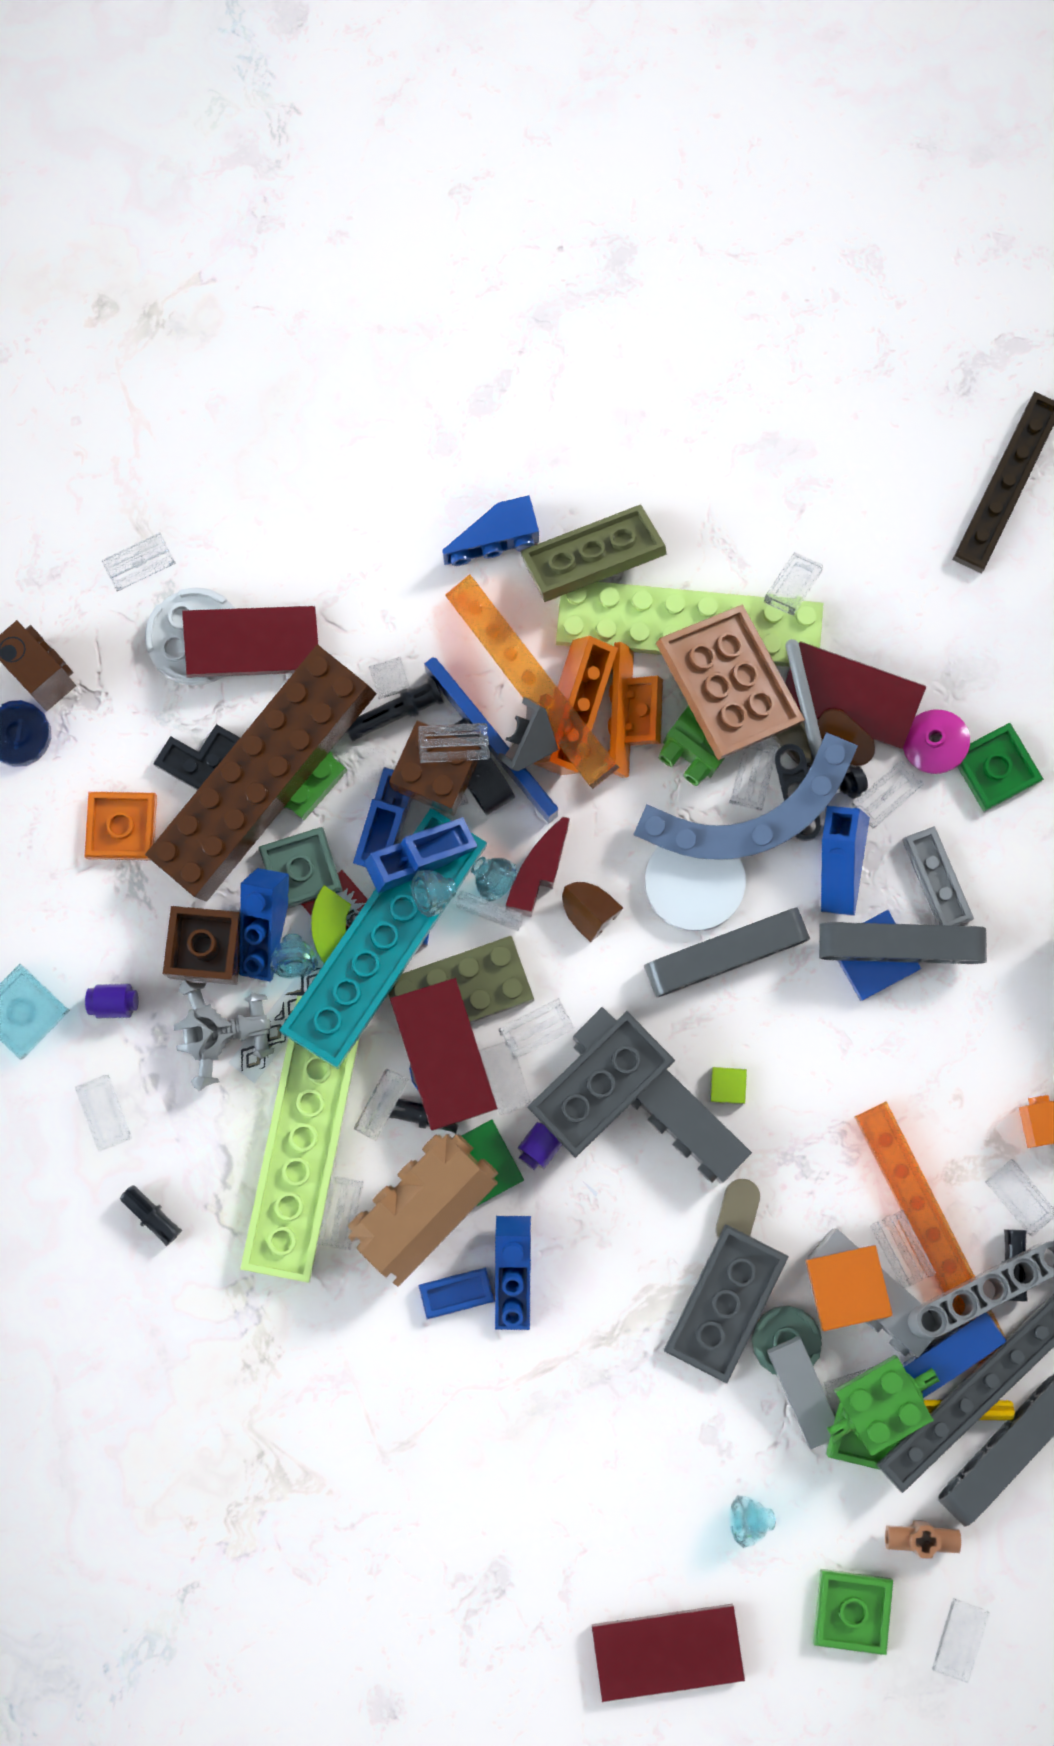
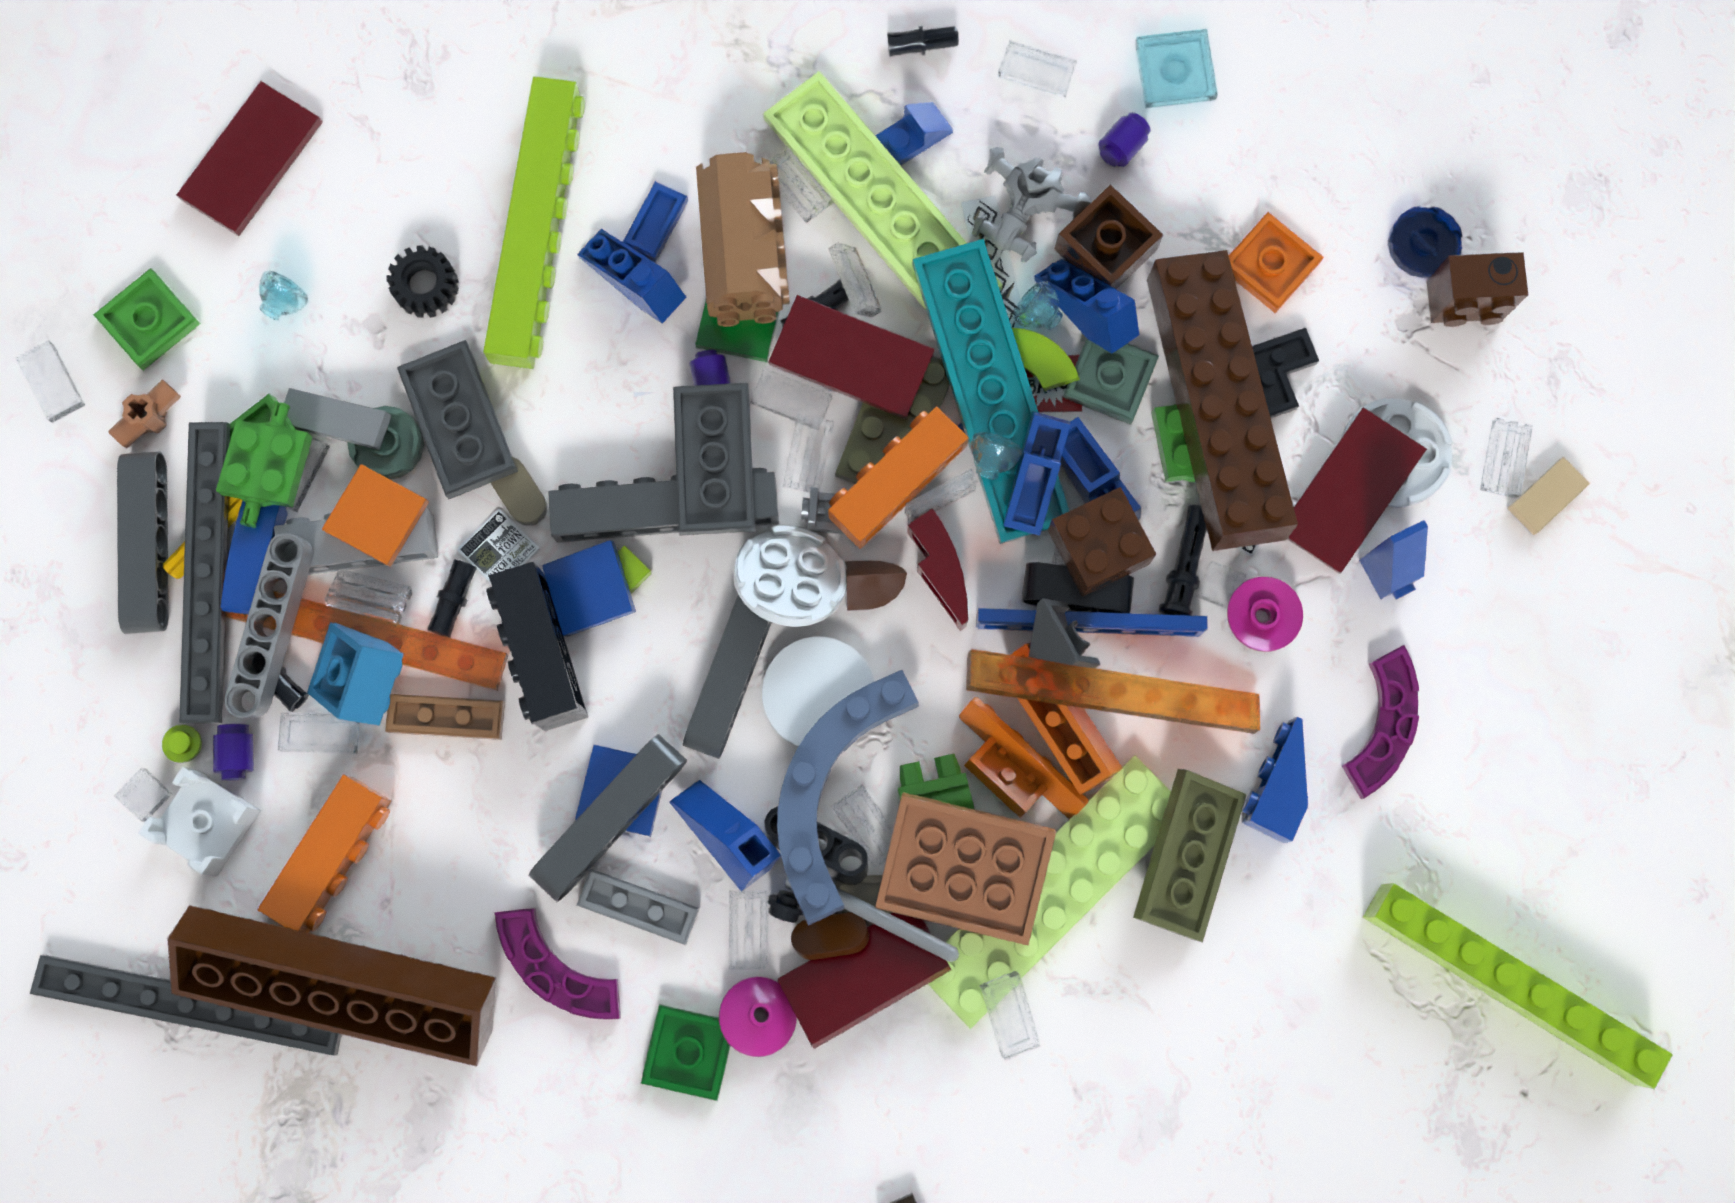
camera: 130 degrees right, 0 degrees up
(143, 515) = (1548, 496): none -> tan tile
(229, 1160) = (916, 132): none -> blue slope
(280, 572) = (1398, 561): none -> blue slope
(382, 617) = (1279, 603): none -> dark pink dish
(391, 495) = (1394, 725): none -> magenta tile
(456, 729) = (1127, 536): clear tile -> none
(494, 877) = (966, 521): clear light blue brick -> none
(500, 299) = (1518, 986): none -> lime brick
(504, 946) = (897, 477): none -> orange brick
(533, 1382) = (533, 223): none -> lime brick
(565, 977) = (816, 512): none -> flat silver bracket
(635, 963) = (790, 576): none -> white tile
(670, 1430) = (413, 263): none -> black tyre
(762, 1098) = (588, 588): none -> blue tile
(788, 1191) = (497, 545): none -> sticker
(836, 1089) = (537, 647): none -> black brick
(852, 1189) = (451, 598): none -> black pin
(933, 1120) = (445, 716): none -> medium nougat tile
(965, 1204) = (355, 675): none -> dark azure slope
(1031, 895) = (548, 974): none -> magenta tile

